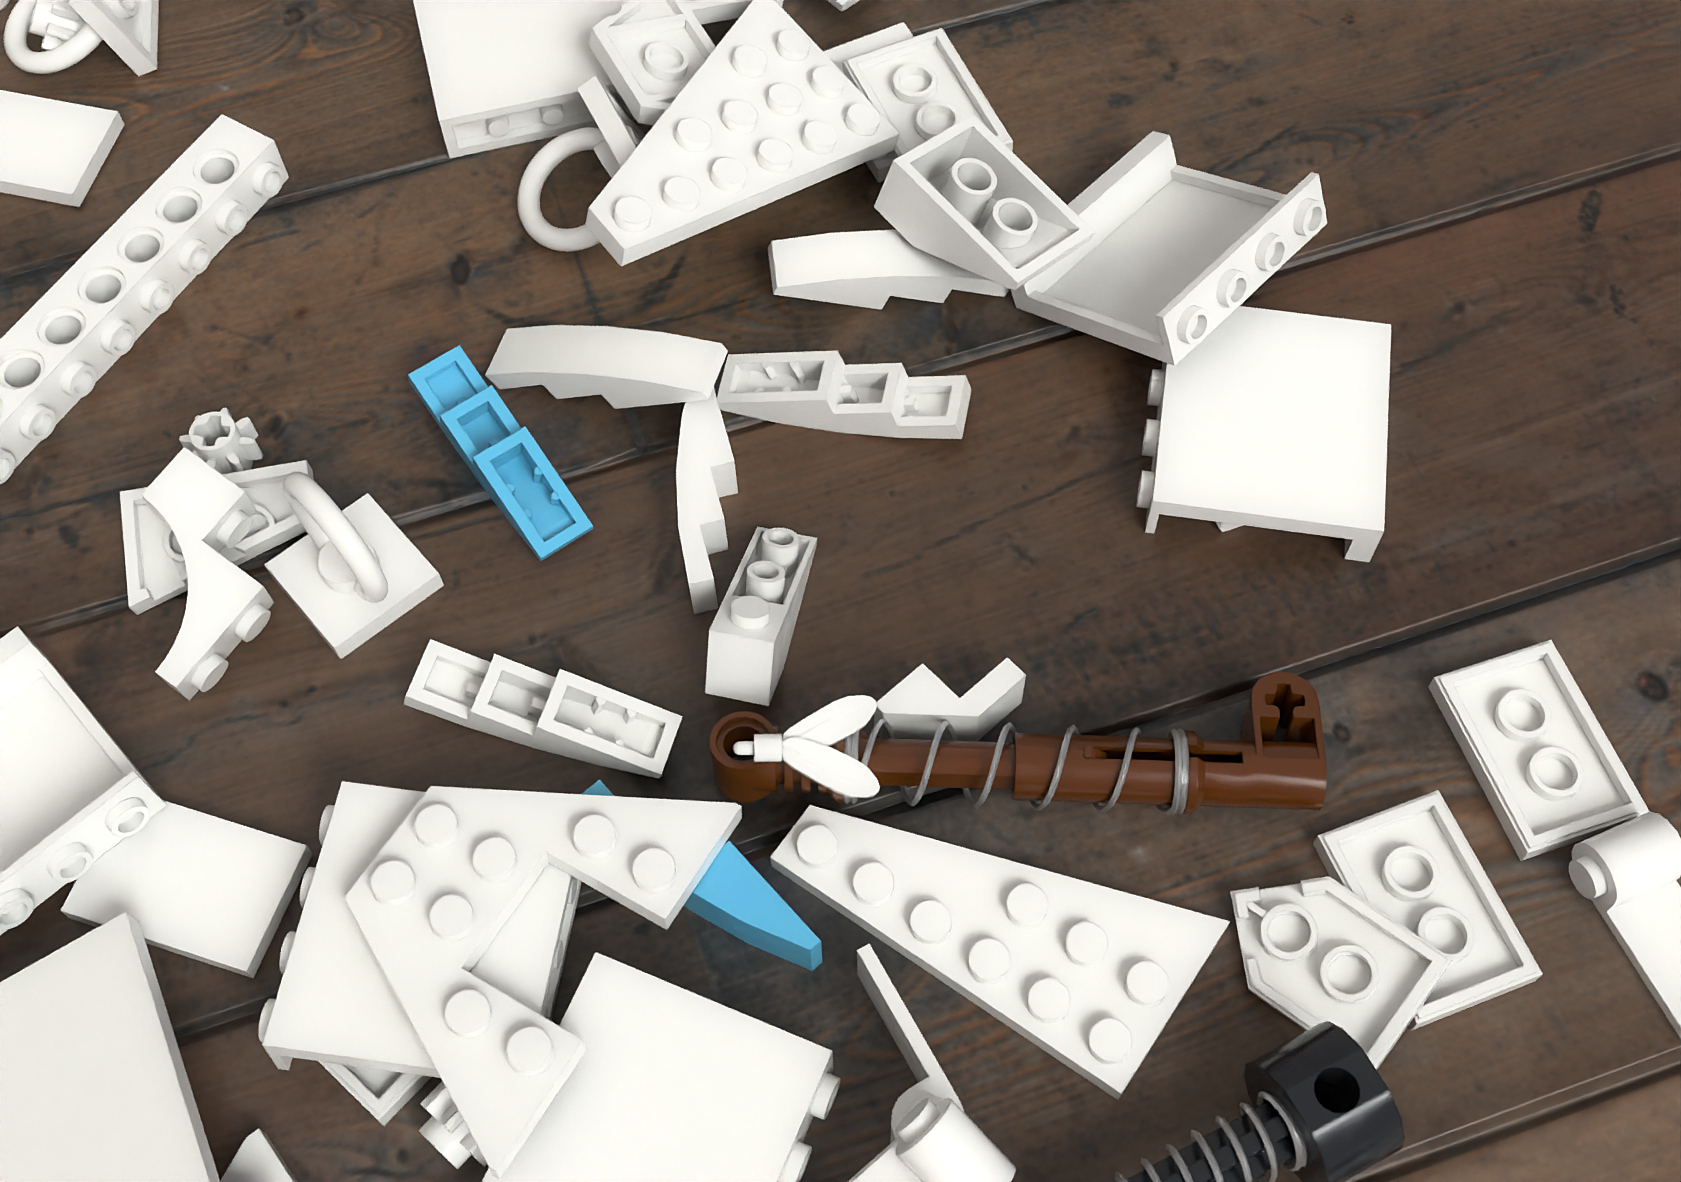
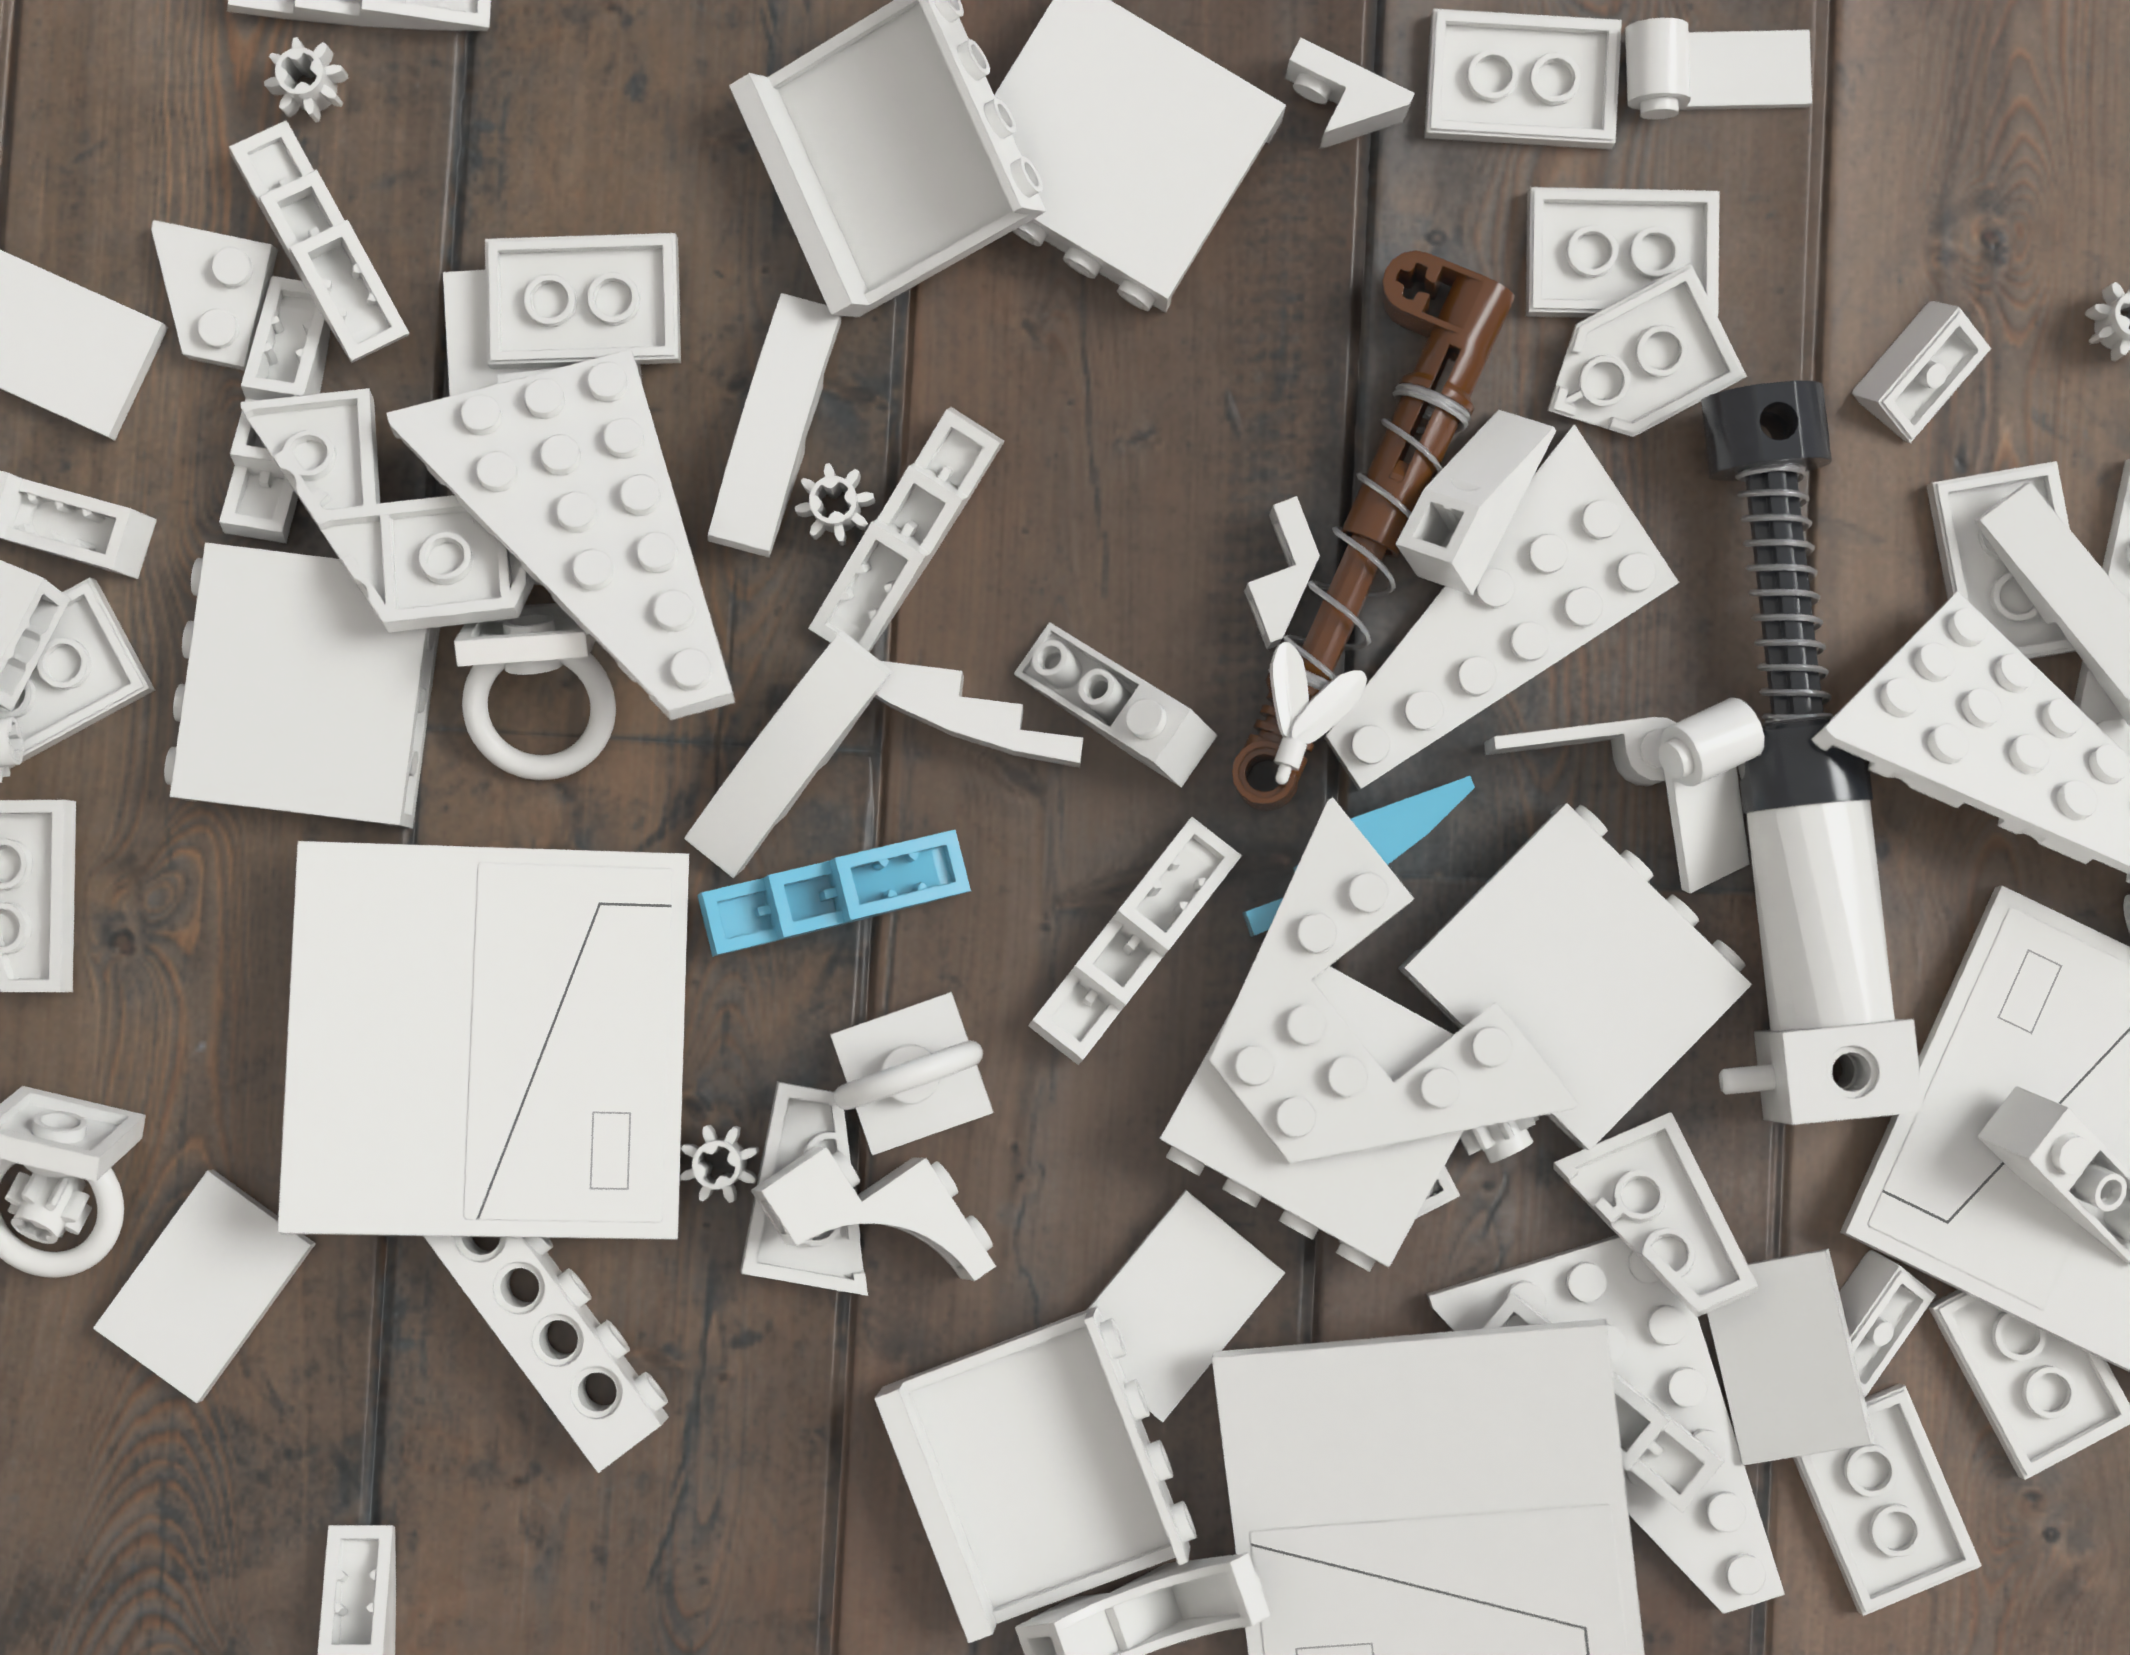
camera: 70 degrees left, 25 degrees up
(271, 241) = (484, 1042): none -> white tile
(845, 328) = (833, 487): none -> white gear
(979, 206) = (783, 310): white slope -> none
(1090, 836) = (1473, 502): none -> white slope
(1425, 597) = (1363, 98): none -> white slope

